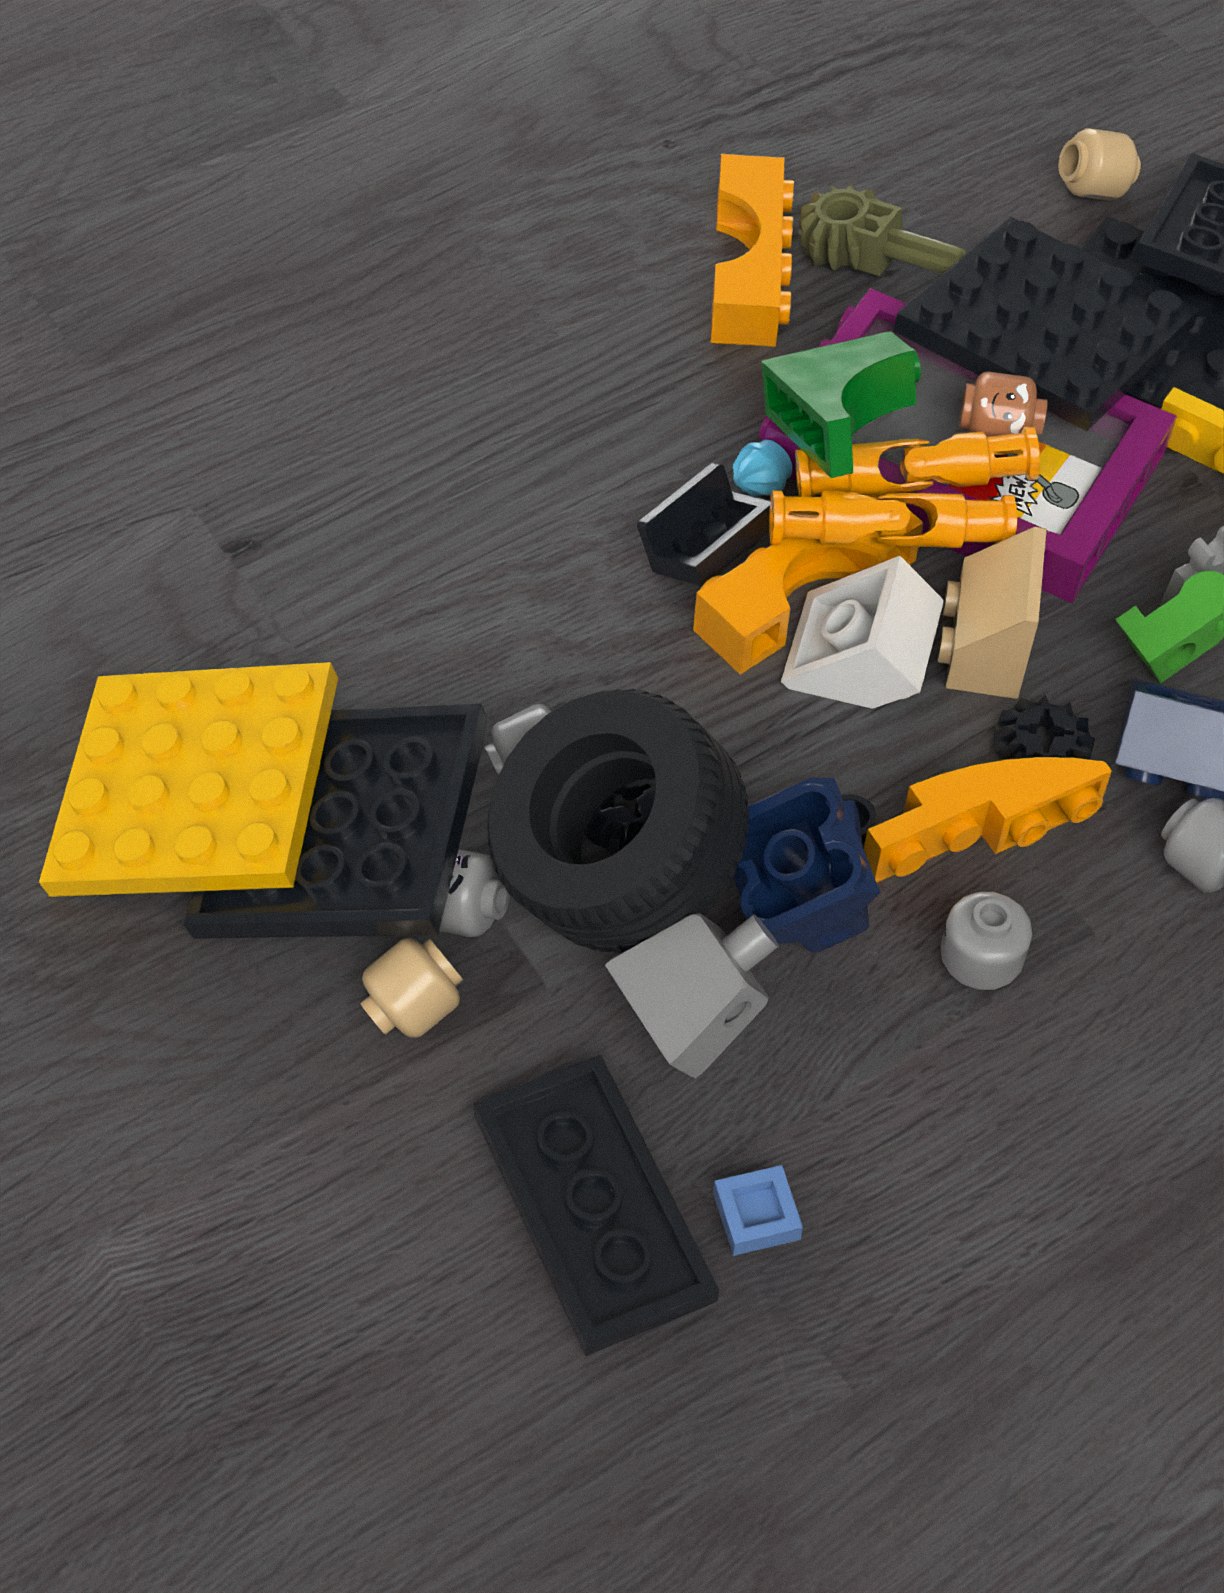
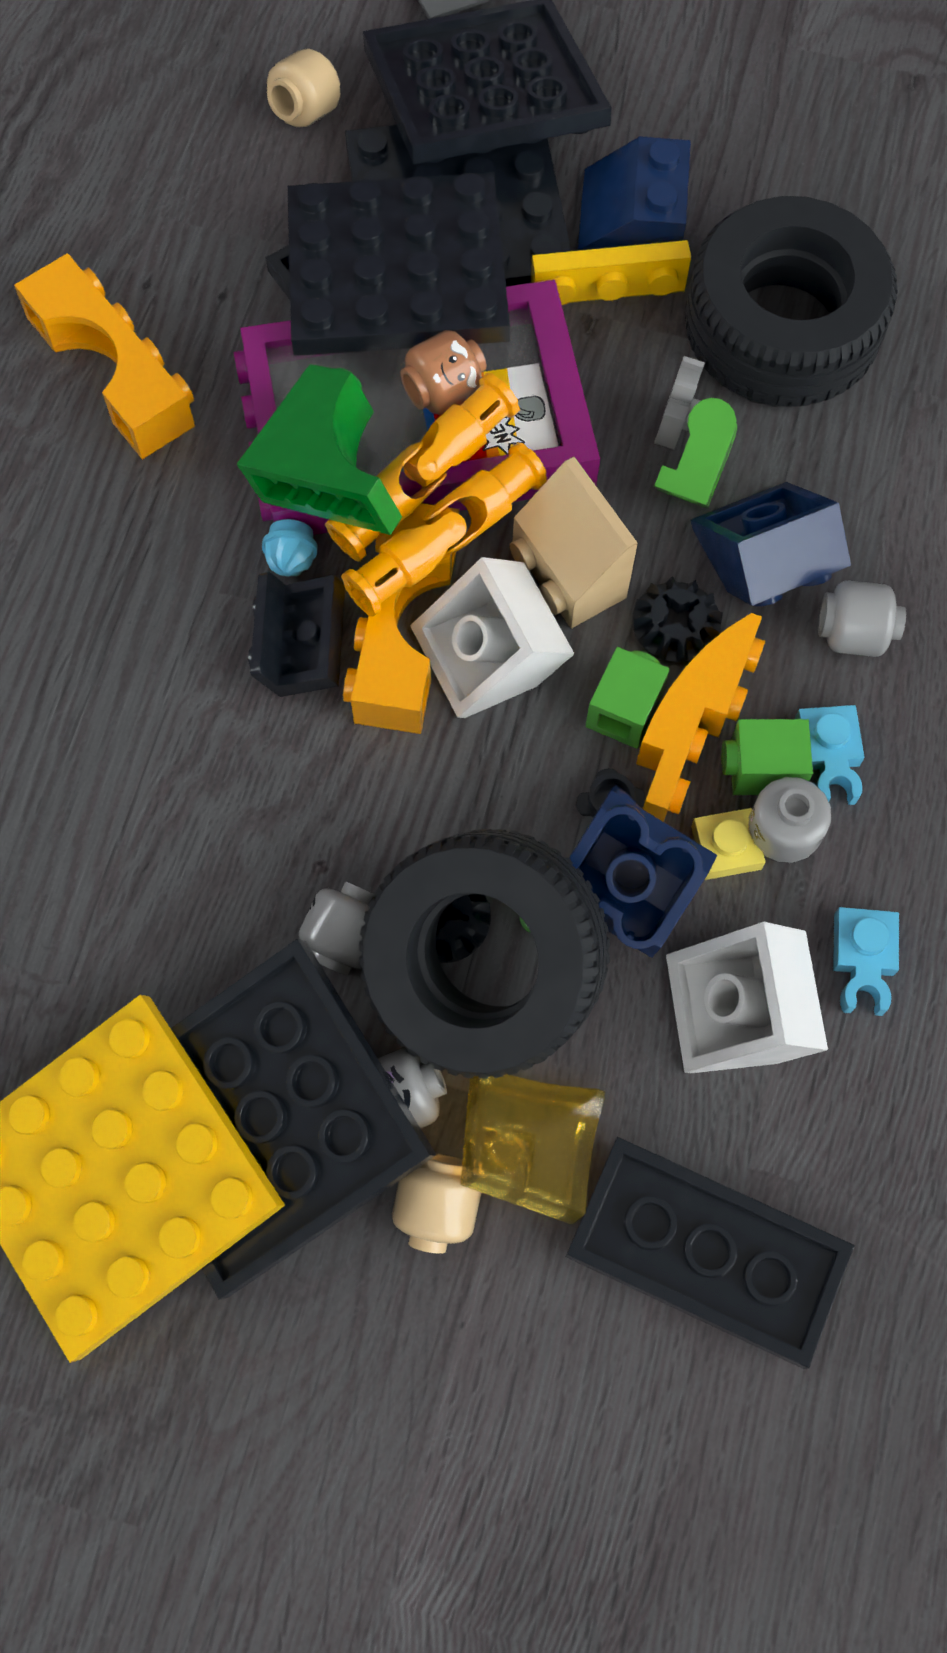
camera: 40 degrees left, 15 degrees up
(526, 1005) = (531, 1143): none -> clear yellow plate
(695, 986) = (638, 1029): light grey torso -> none
(757, 1210) = (819, 1158): medium blue plate -> none
(817, 1046) = (746, 999): none -> white slope
(866, 234) = (184, 277): olive gear -> none
(914, 931) = (730, 839): none -> light yellow plate
(934, 747) = (627, 696): none -> bright green brick
(960, 1096) = (867, 947): none -> medium azure plate
(1025, 875) = (766, 752): none -> bright green brick
(1087, 926) = (835, 748): none -> medium azure plate

